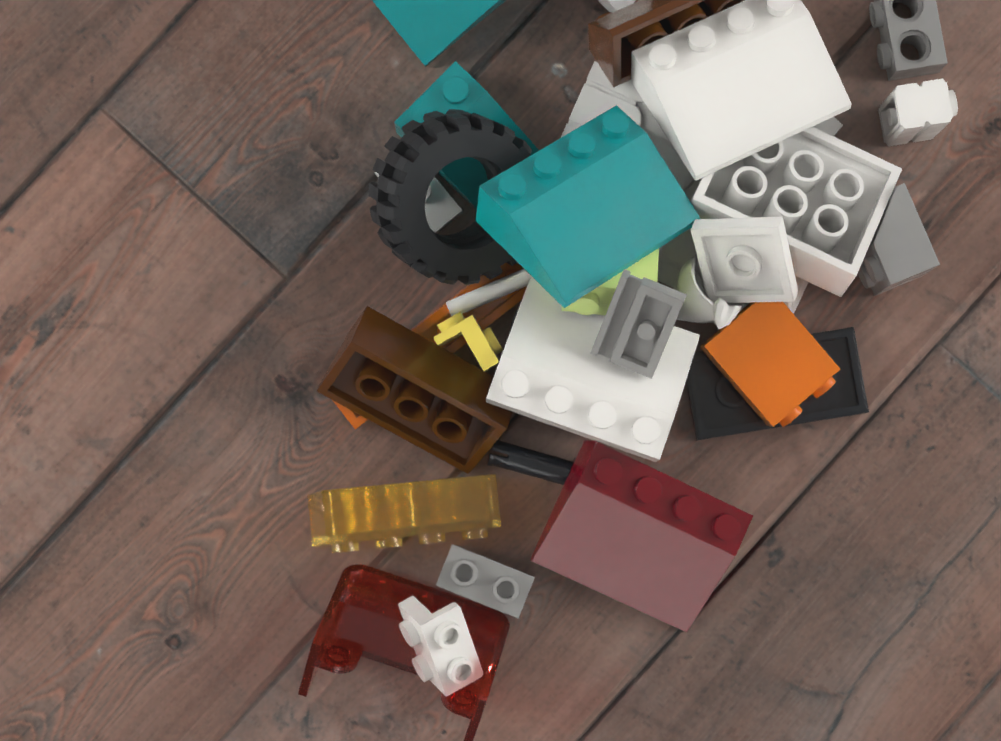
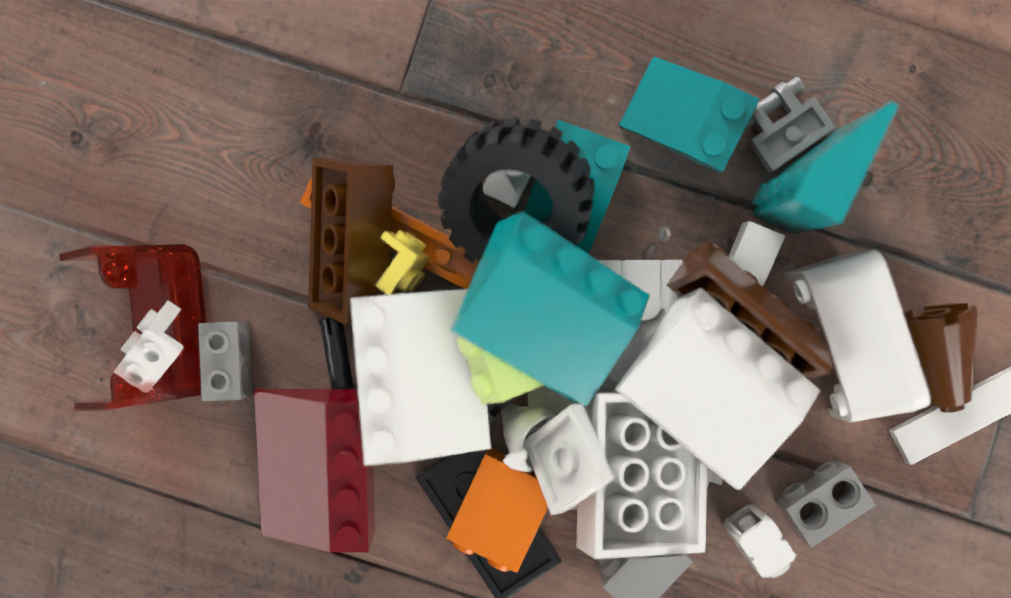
camera: 70 degrees right, 5 degrees up
(404, 510) = (248, 272): clear yellow wedge -> none
(489, 292) = (449, 255): white bar -> none
(638, 323) = (468, 398): light grey plate -> none

